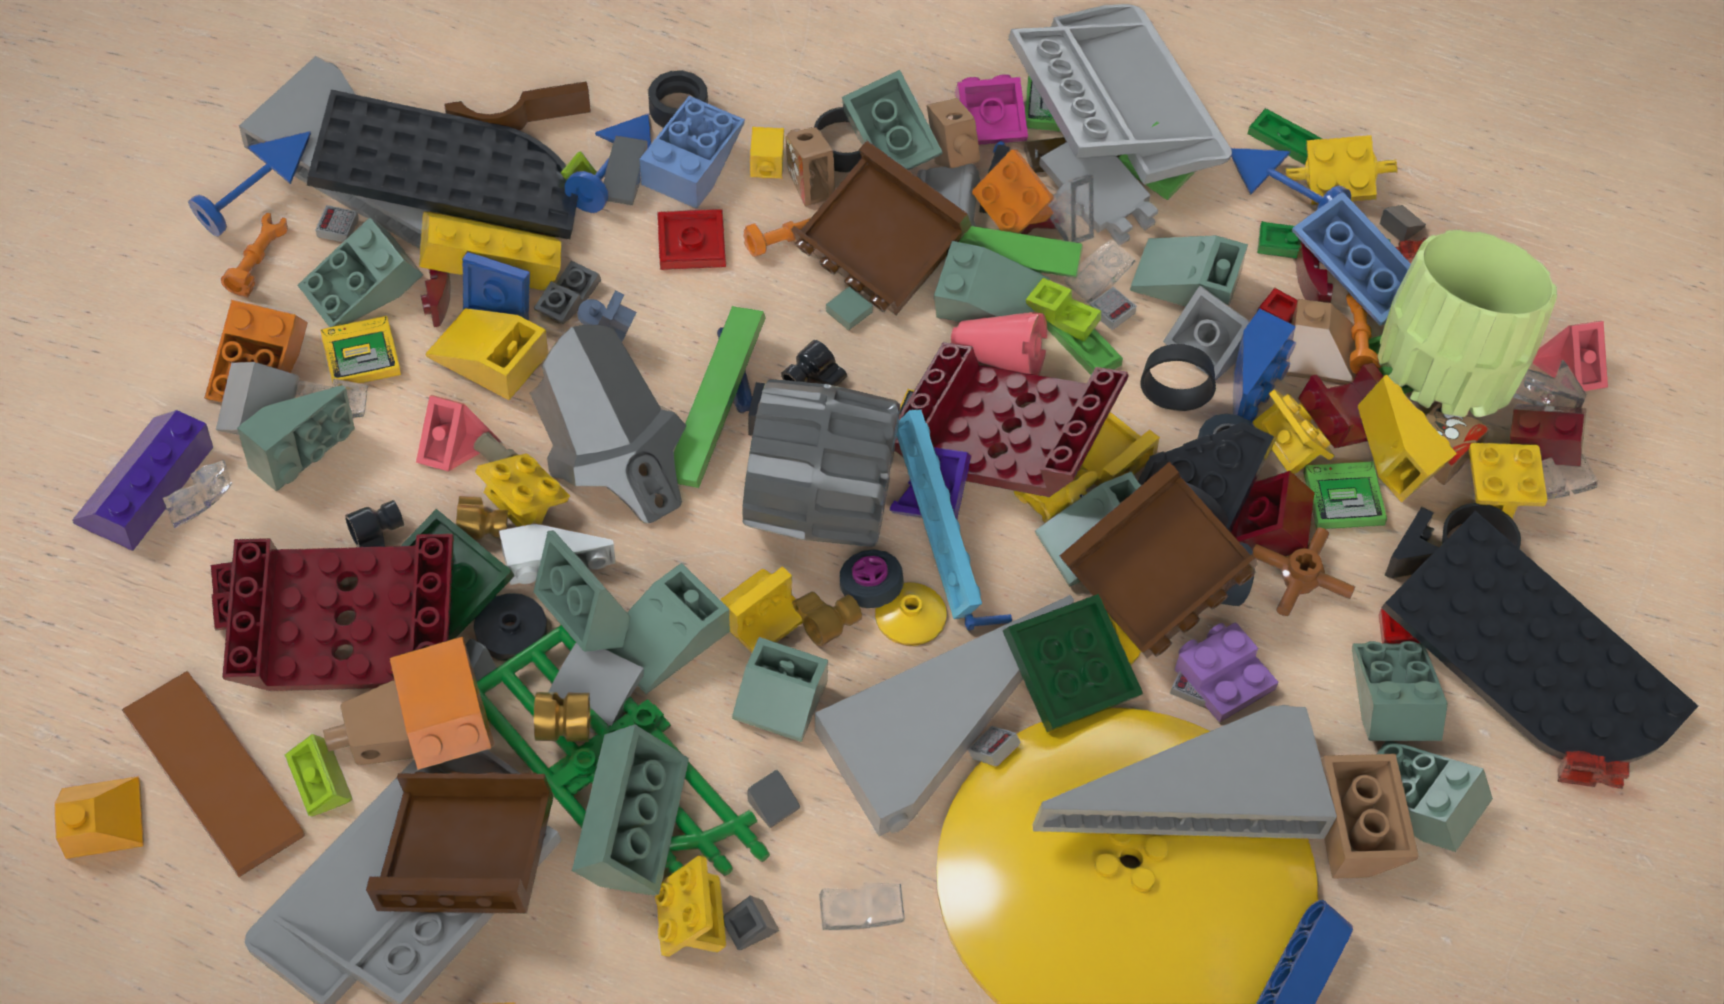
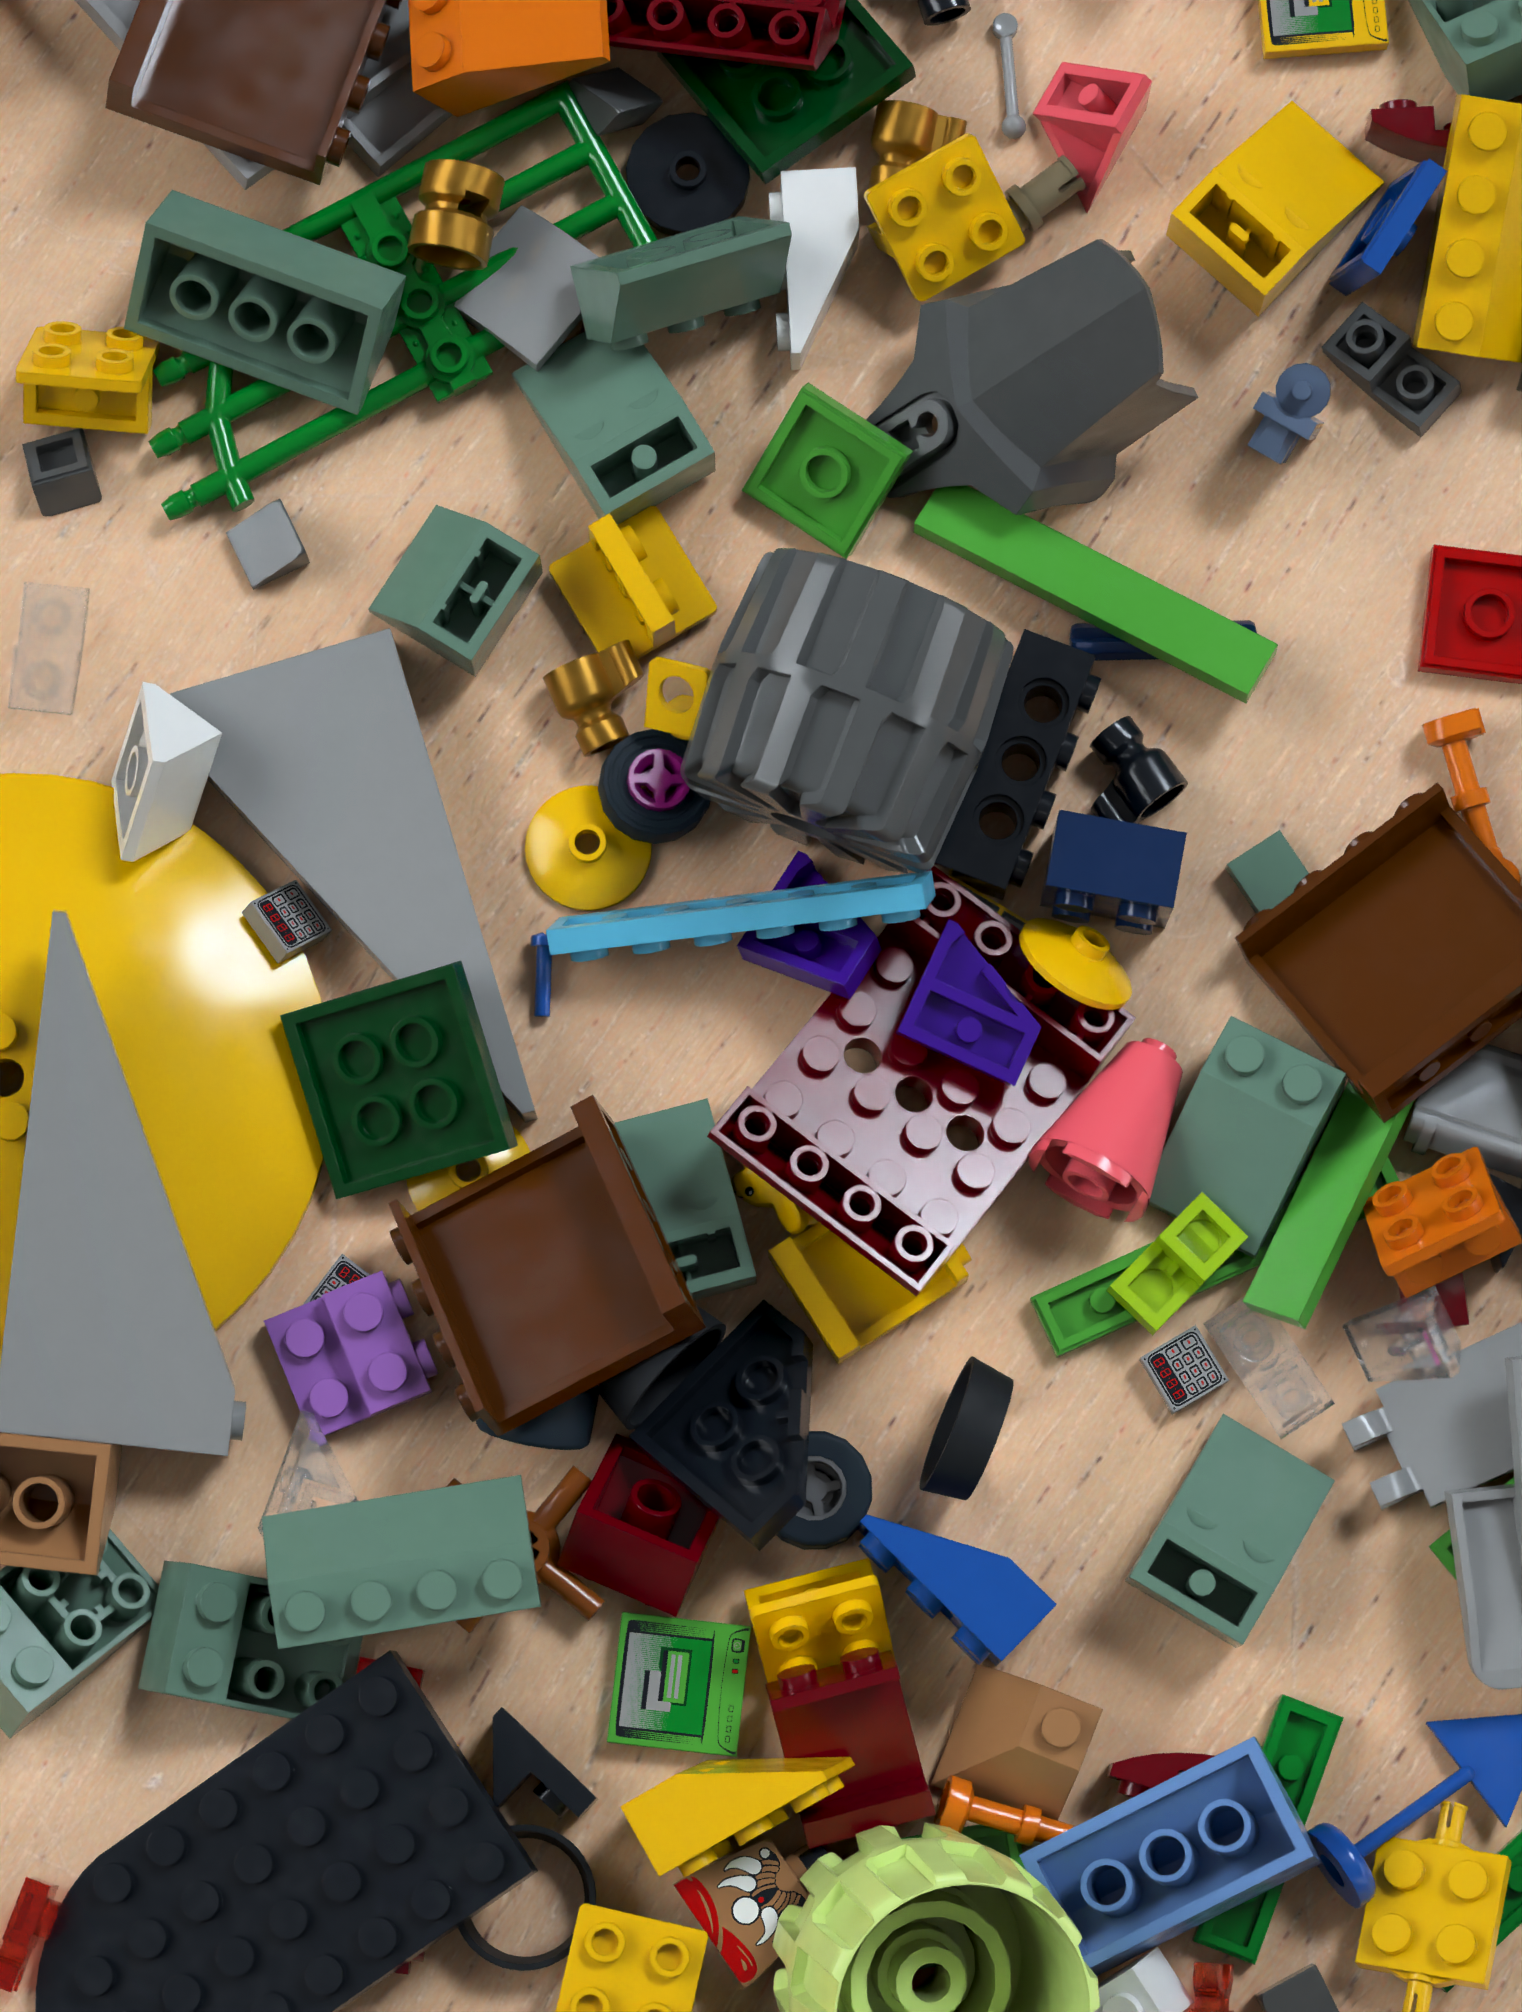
camera: 105 degrees right, 25 degrees up
(399, 491) = (1005, 29): none -> light grey hinge
(675, 523) = (827, 470): none -> bright green tile
(828, 562) = (681, 712): none -> yellow bracket
(872, 353) = (1112, 872): none -> dark blue brick
(920, 368) = (1076, 962): none -> yellow dish
(929, 815) = (160, 772): none -> white slope
(963, 402) = (969, 1011): none -> dark purple wing
(1211, 328) = (1070, 1522): light grey slope -> none
(1279, 305) = (1128, 1693): red tile -> none
(1304, 675) = (307, 1471): none -> clear slope
(1339, 603) = (400, 1562): none -> sand green slope

